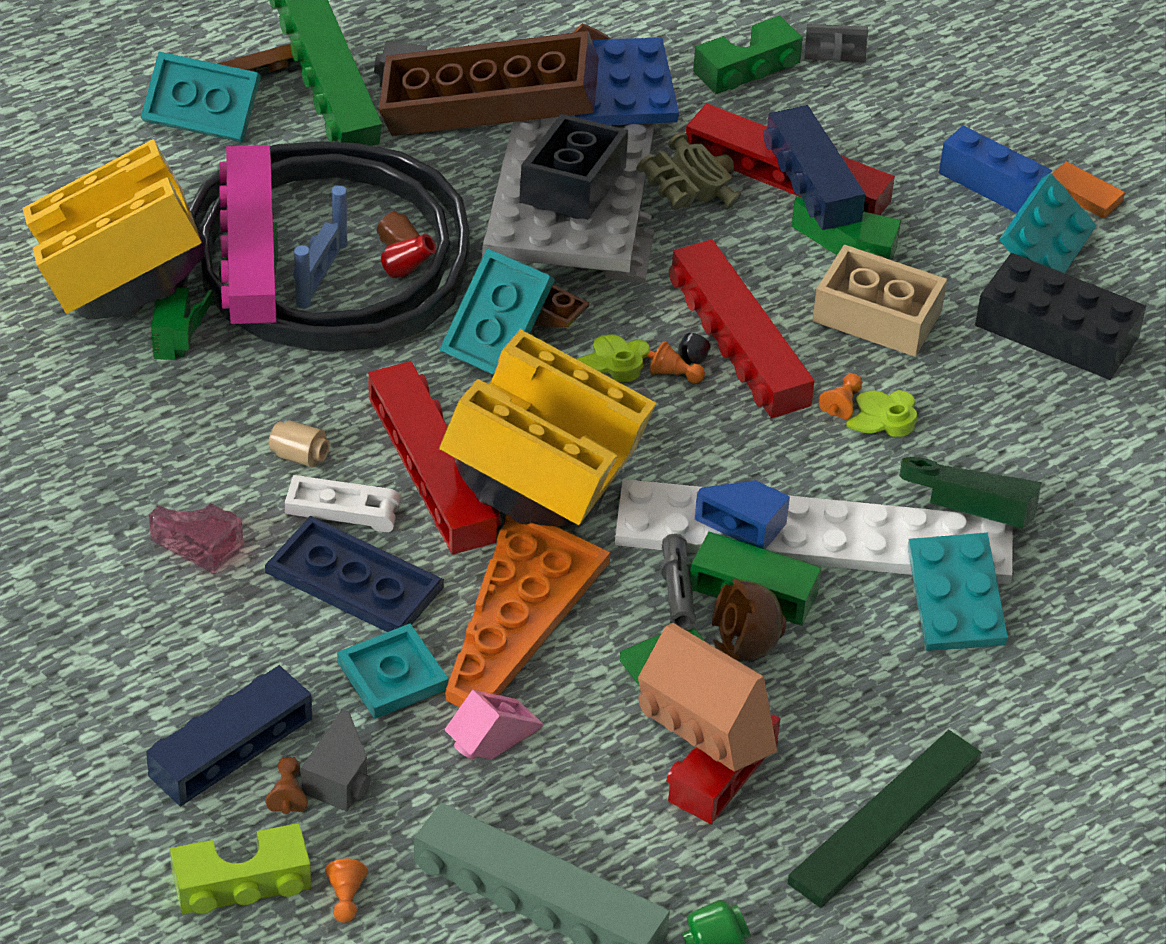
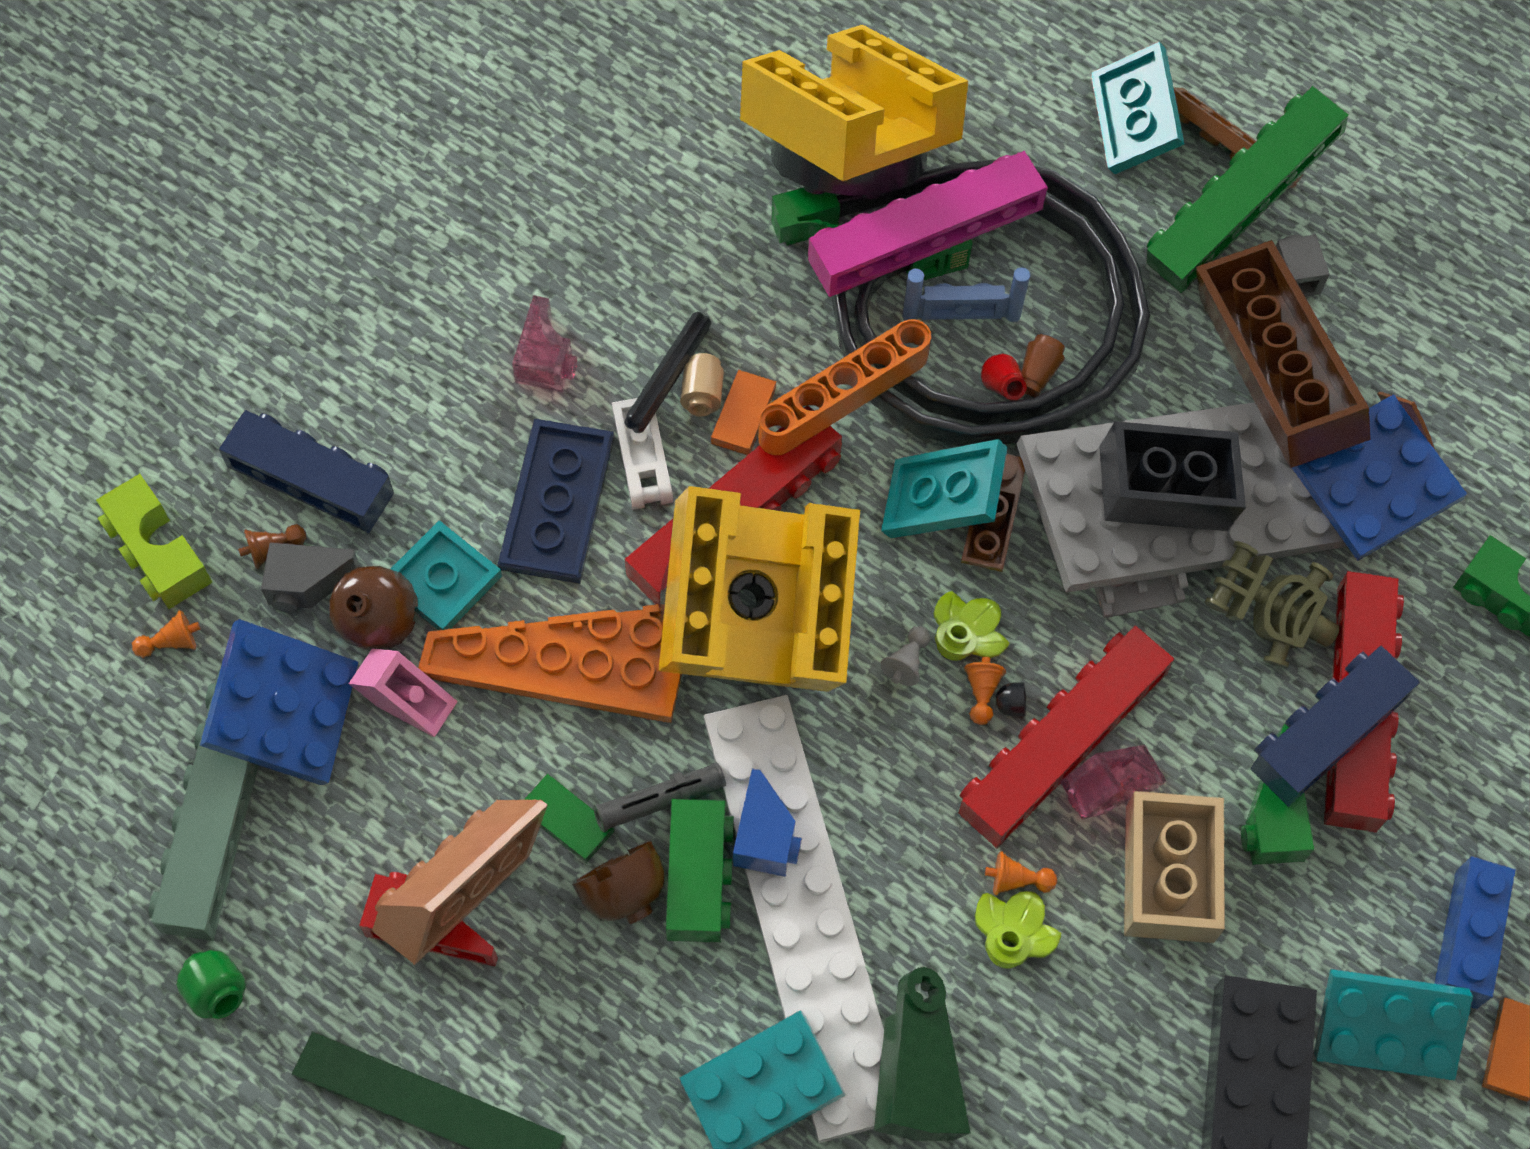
camera: 70 degrees right, 20 degrees up
(278, 456) = (667, 372): none -> black axle
(345, 432) = (739, 417): none -> orange tile
(374, 335) = (851, 370): none -> orange beam
(403, 719) = (373, 608): none -> reddish brown cylinder
(471, 800) = (279, 703): none -> blue plate
(793, 315) = (1111, 780): none -> clear pink arch

